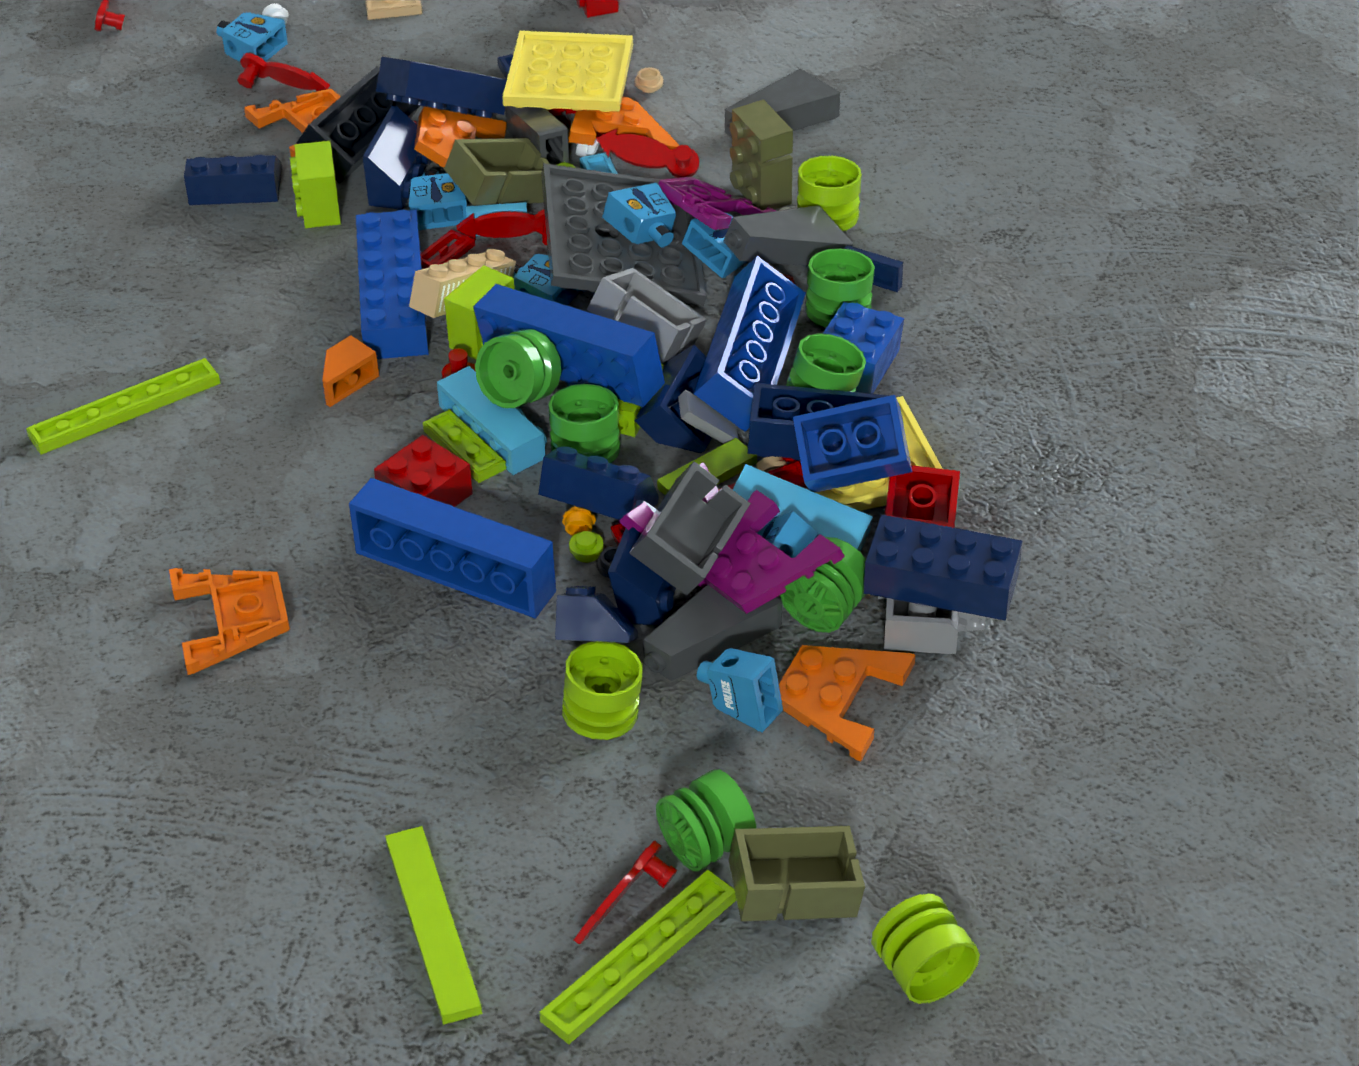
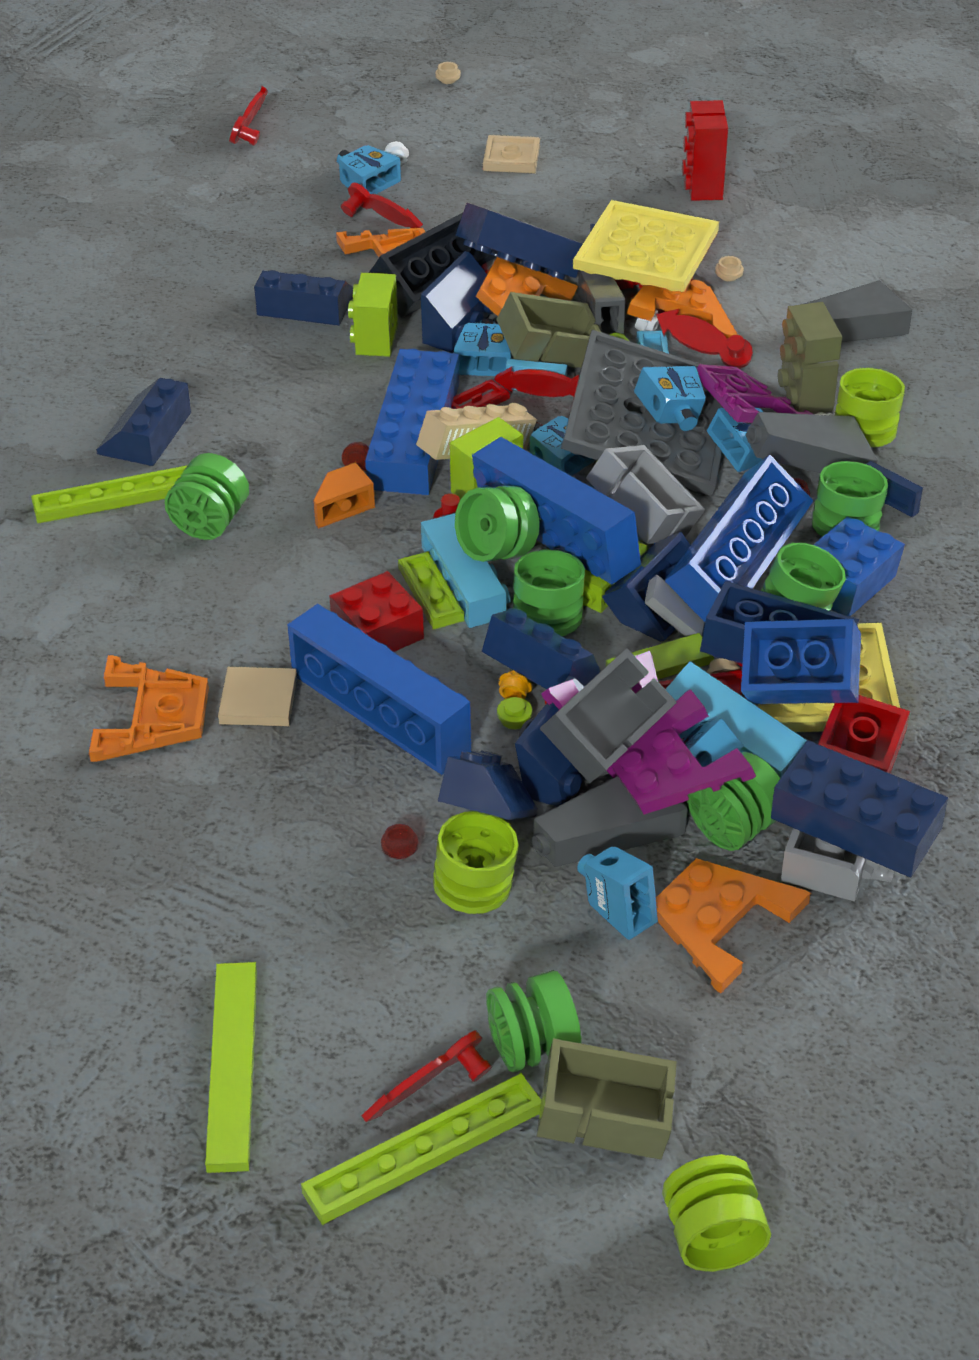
camera: 15 degrees right, 0 degrees up
(119, 333) = (148, 423): none -> dark blue slope
(213, 395) = (207, 496): none -> bright green wheel
(331, 579) = (257, 696): none -> tan tile
(345, 326) = (356, 453): none -> clear red plate
(519, 687) = (399, 841): none -> clear red plate

